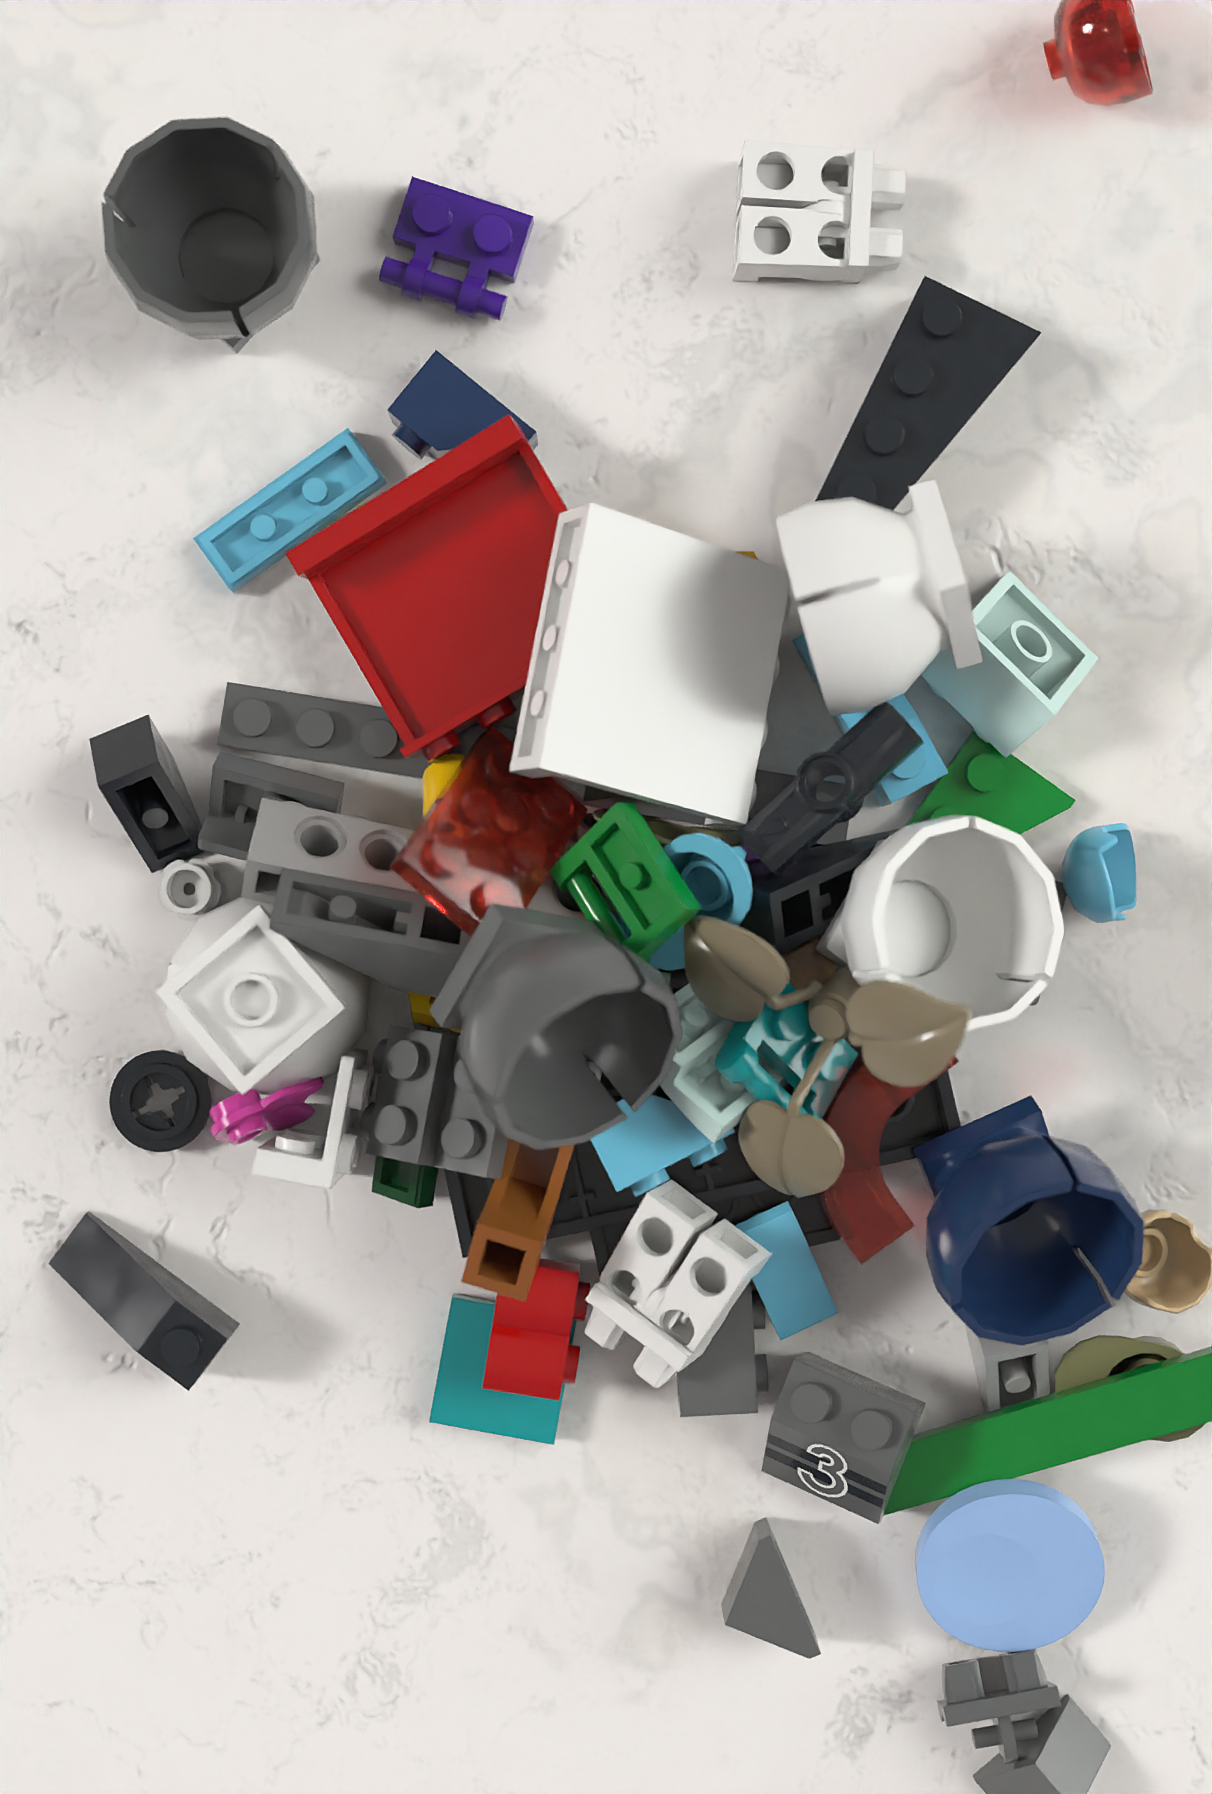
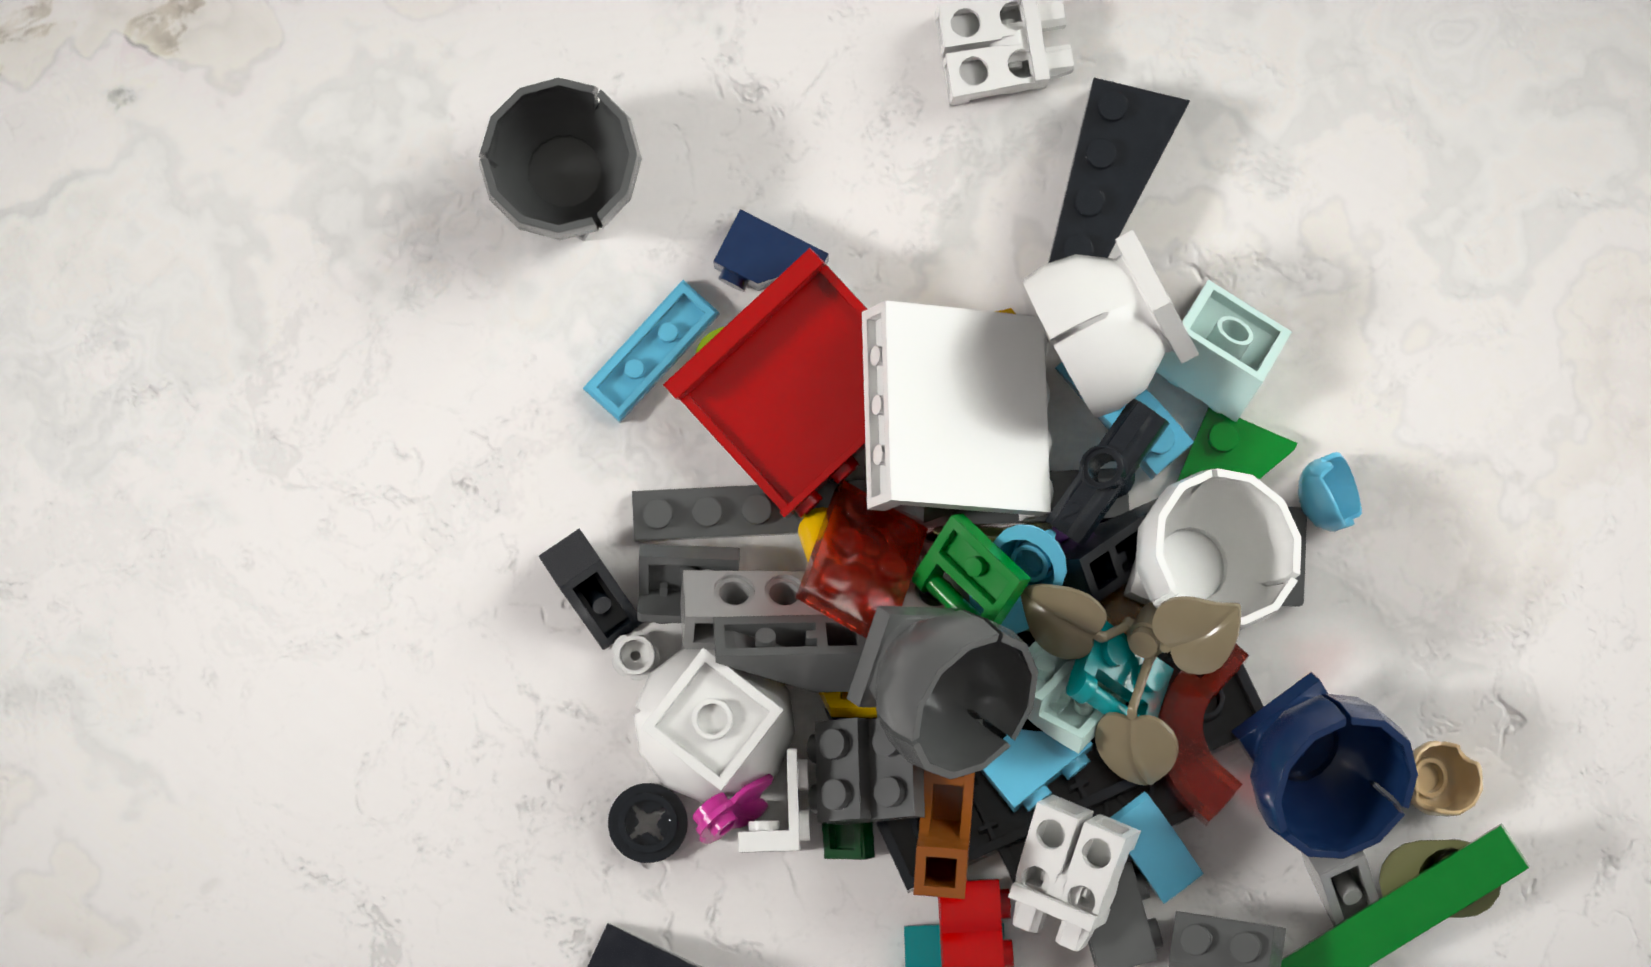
camera: 15 degrees left, 5 degrees down
(462, 232) = (737, 114): dark purple plate -> none

